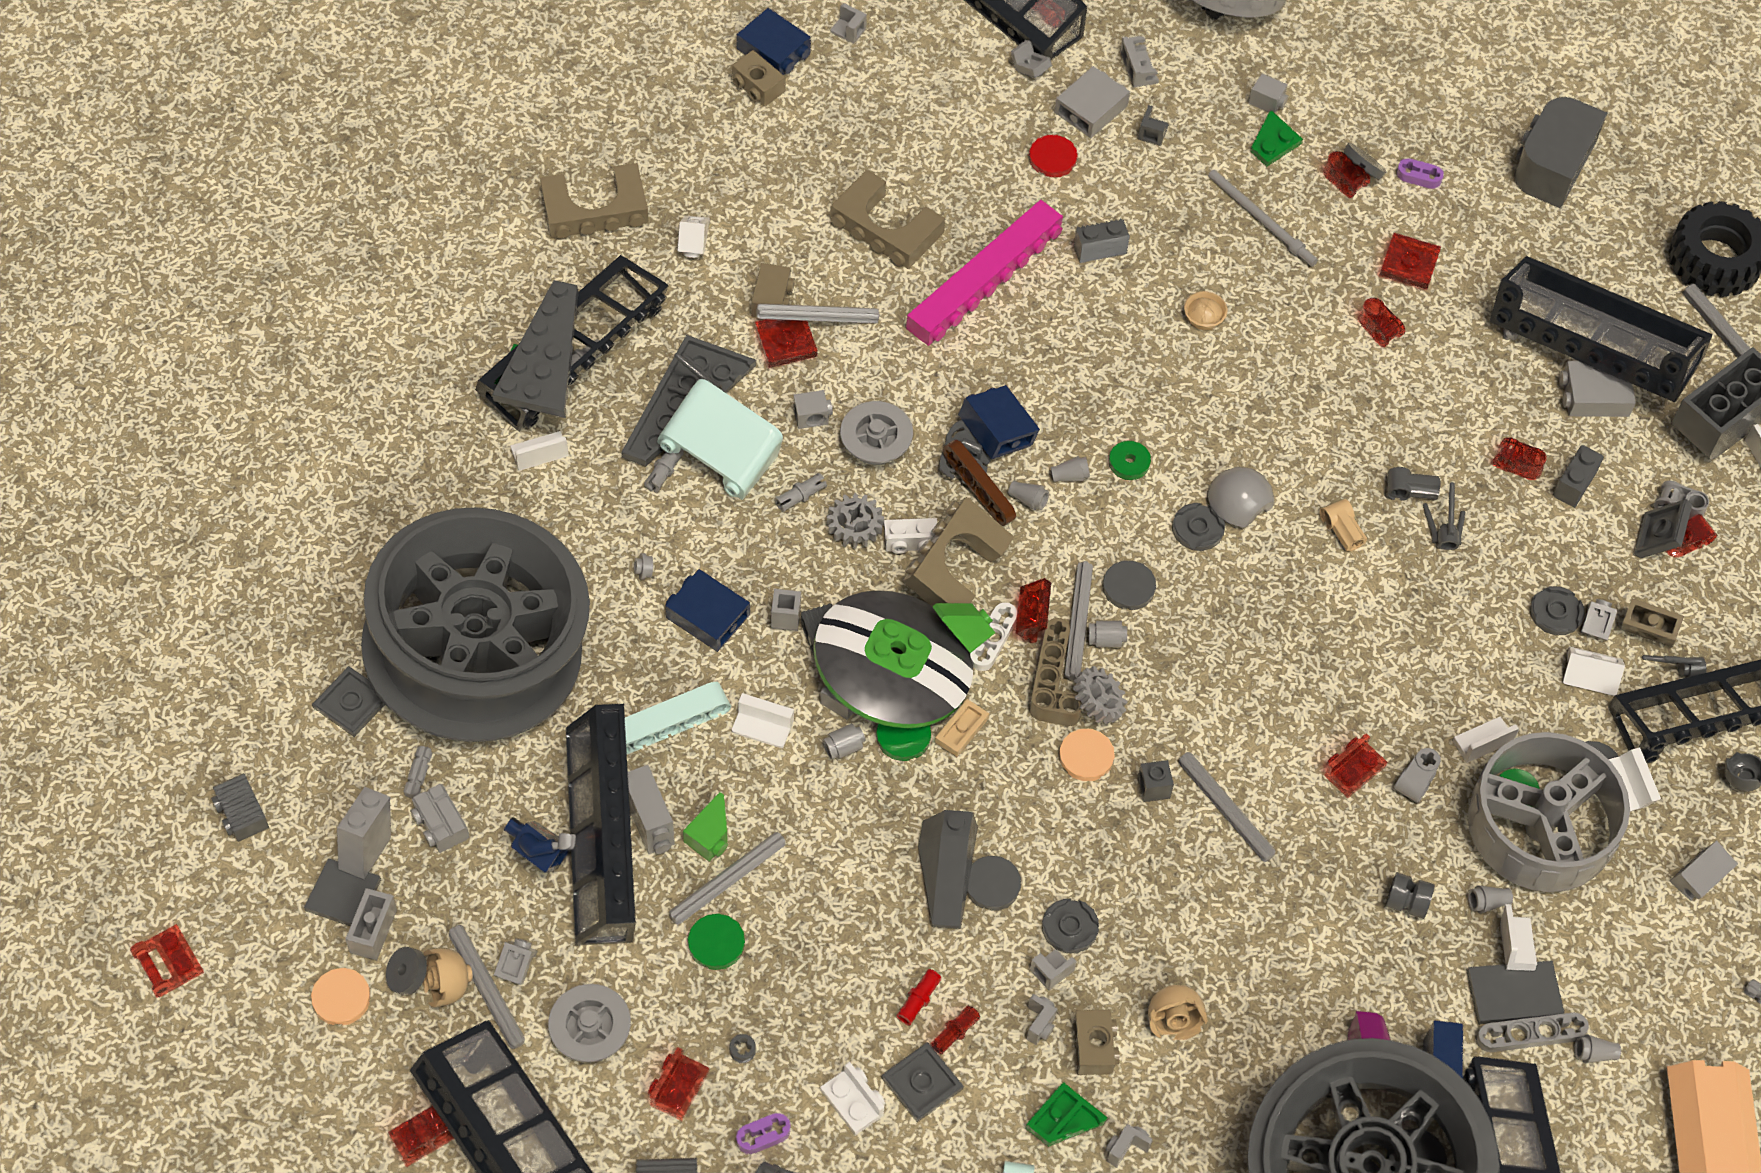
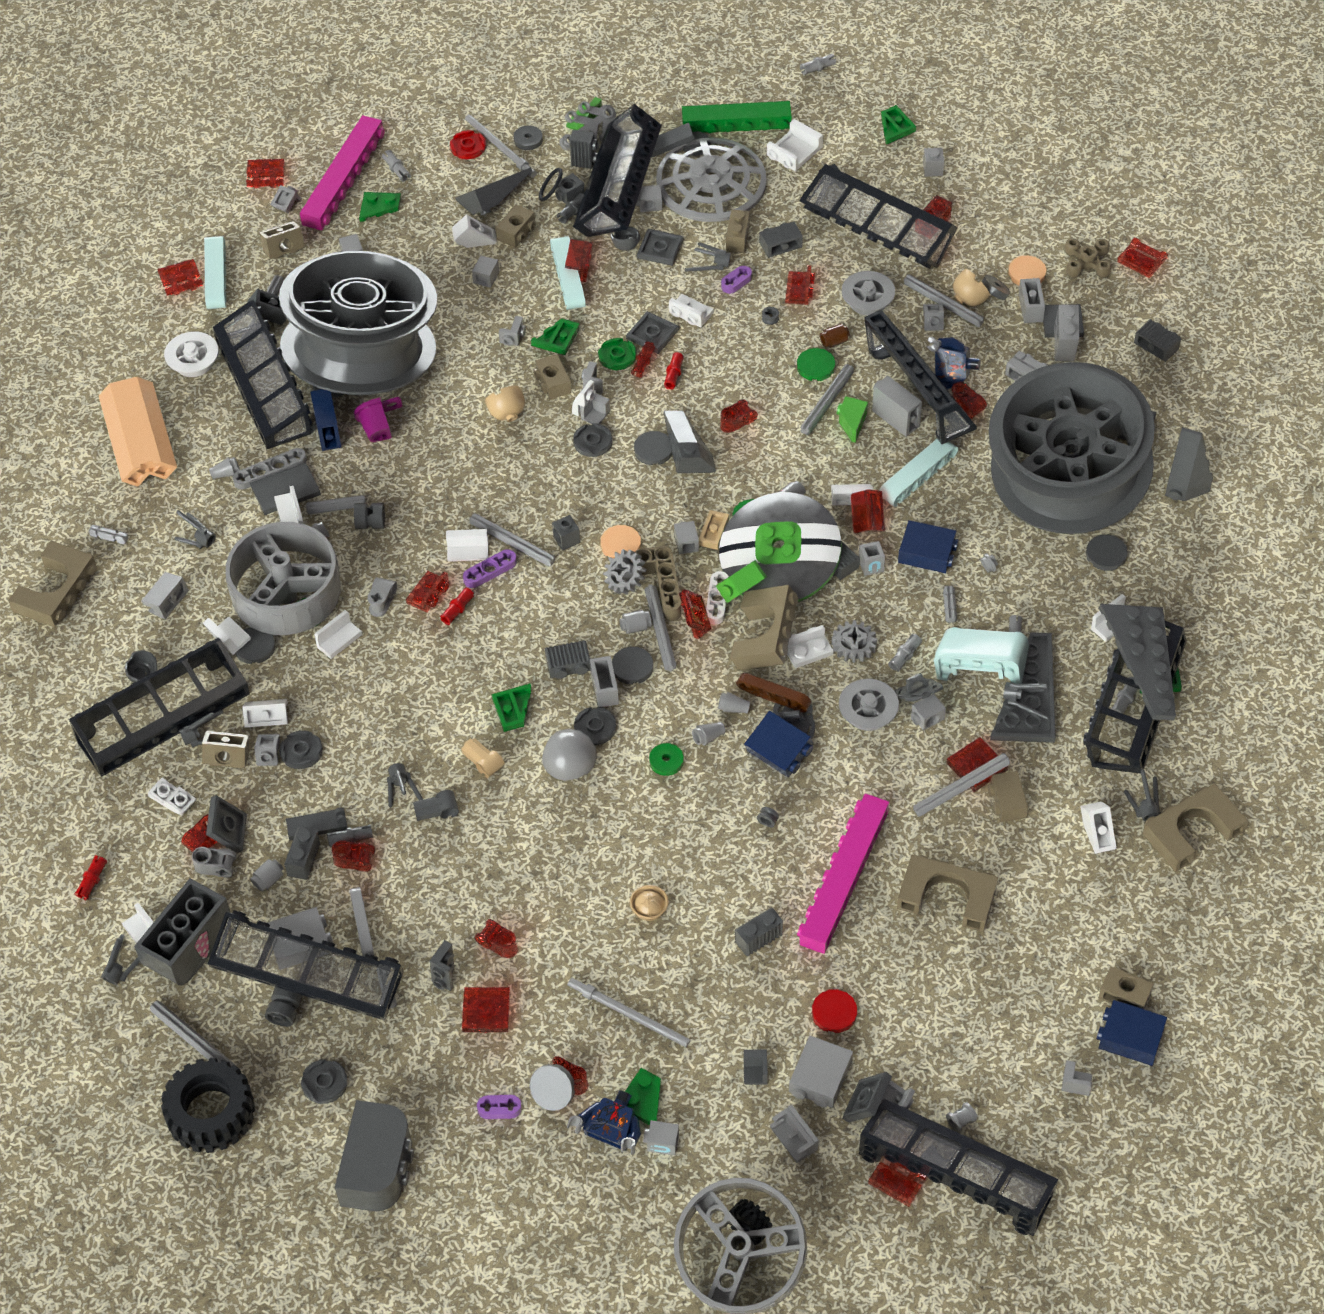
camera: 165 degrees right, 5 degrees down
(250, 988) = (1087, 258): none -> dark tan gear
(338, 577) = (1190, 468): none -> dark grey wedge
(546, 800) = (969, 400): none -> clear red piece
(629, 237) = (1147, 807): none -> dark grey plant
(670, 972) = (834, 335): none -> reddish brown brick
(717, 535) = (950, 604): none -> light grey axle
(762, 672) = (867, 511): none -> clear red panel
(813, 428) = (918, 688): none -> dark grey shield
(860, 886) = (737, 416): none -> clear red piece
(982, 28) = (961, 1117): none -> light grey bush
(992, 1067) = (617, 354): none -> green tile
(1002, 725) = (686, 537): none -> light grey brick
(1042, 355) = (767, 817): none -> dark grey bush
(1059, 58) = (867, 1097): none -> dark grey tile
(1067, 973) = (586, 394): none -> white slope
(1174, 559) = (604, 681): none -> light grey piece
(1206, 609) = (567, 659): none -> dark grey brick
(1271, 763) = (494, 561): none -> medium lavender beam
(1288, 814) = (467, 545): none -> white panel
(1291, 576) = (512, 706): none -> green wing
(1315, 116) = (610, 1122): none -> dark blue torso
(1323, 731) = (457, 606): none -> red pin
(1449, 299) = (442, 966): none -> dark grey bracket
(1450, 941) = (334, 504): none -> light grey axle
(1518, 485) = (350, 834): none -> dark grey pin
(1524, 382) = (361, 921): none -> light grey beam
(1554, 514) = (323, 822): none -> dark grey hinge
(1587, 256) = (328, 1086): none -> dark grey tile
(1622, 469) = (267, 874): none -> light grey brick
(1641, 947) = (203, 536): none -> dark grey plant
(1718, 598) = (171, 797): none -> white slope

